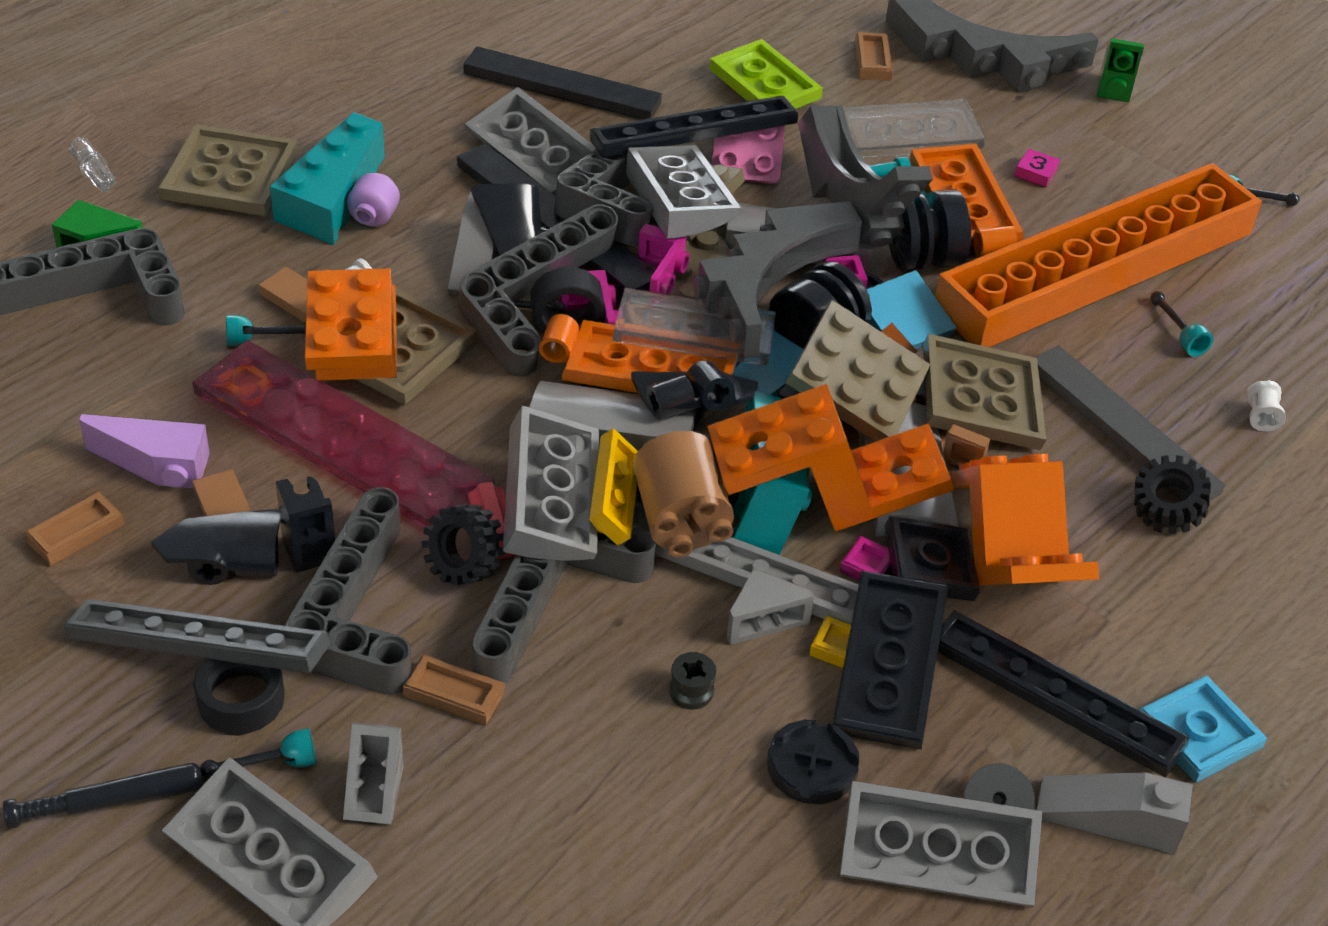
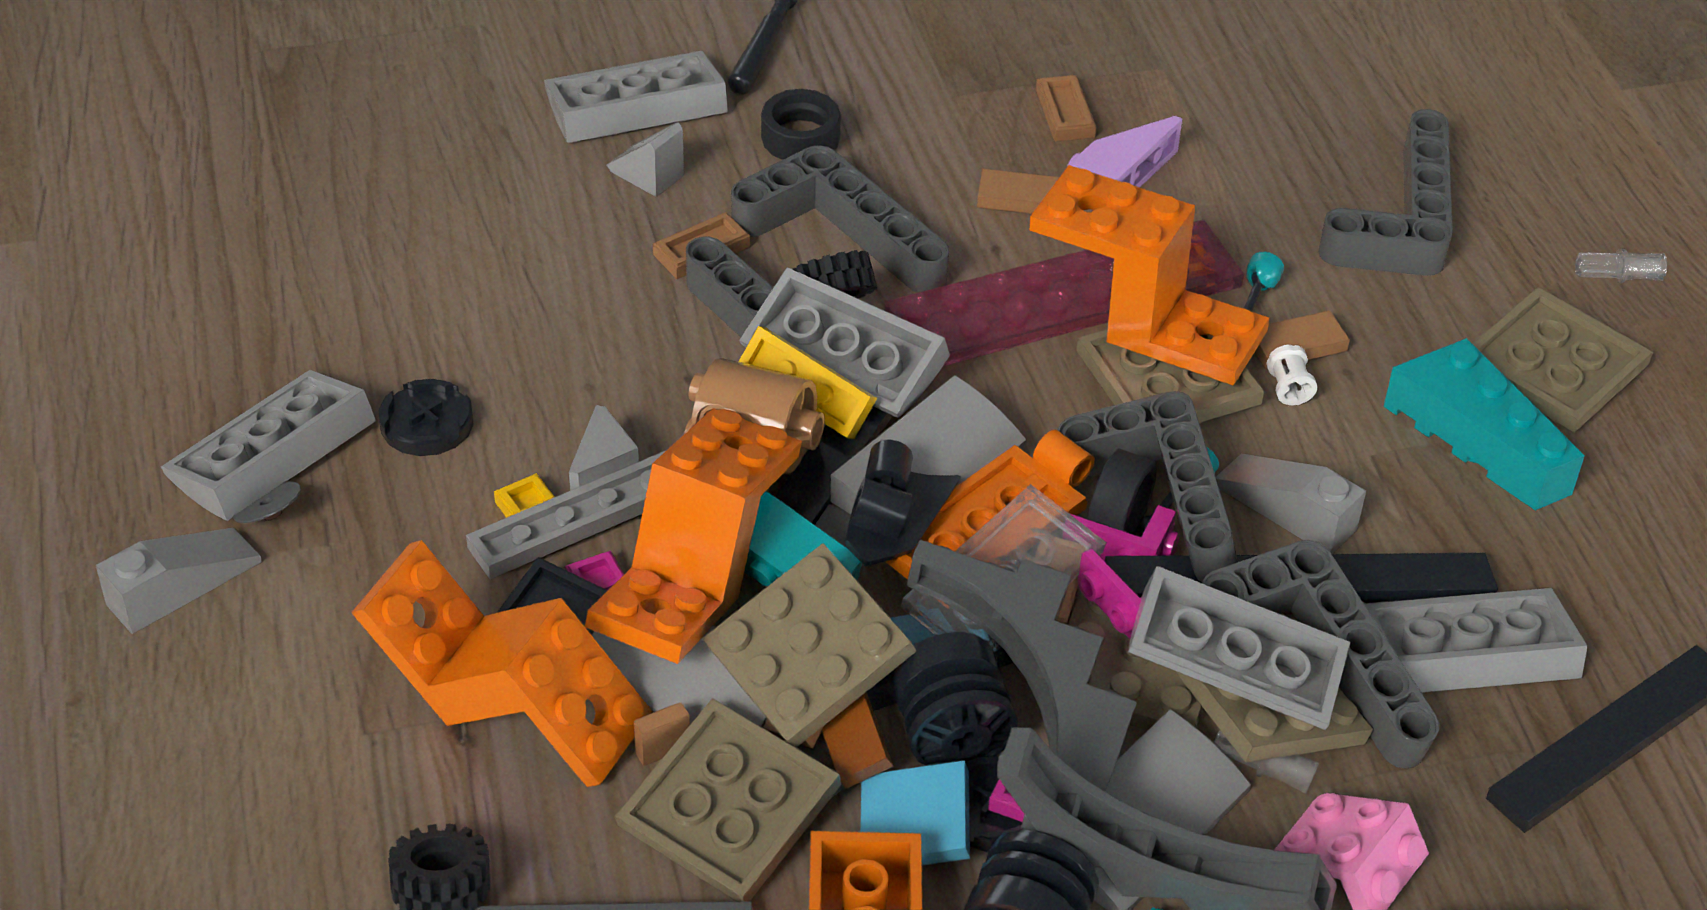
camera: 125 degrees right, 0 degrees up
(88, 222) = (1485, 224): green slope -> none
(198, 635) = (862, 107): dark grey tile -> none
(224, 543) = (965, 164): black panel -> none
(296, 750) = (714, 136): hinge -> none
(305, 524) = (940, 190): black hinge -> none
(373, 199) = (1422, 435): lavender head -> none
(509, 213) = (1288, 511): black panel -> none
(694, 125) = (1368, 748): black tile -> none
(700, 689) = (571, 375): pearl dark grey wheel -> none
(890, 659) = (465, 506): black tile -> none
(1062, 694) = (280, 620): black tile -> none
(1215, 725) = (184, 708): medium azure tile -> none

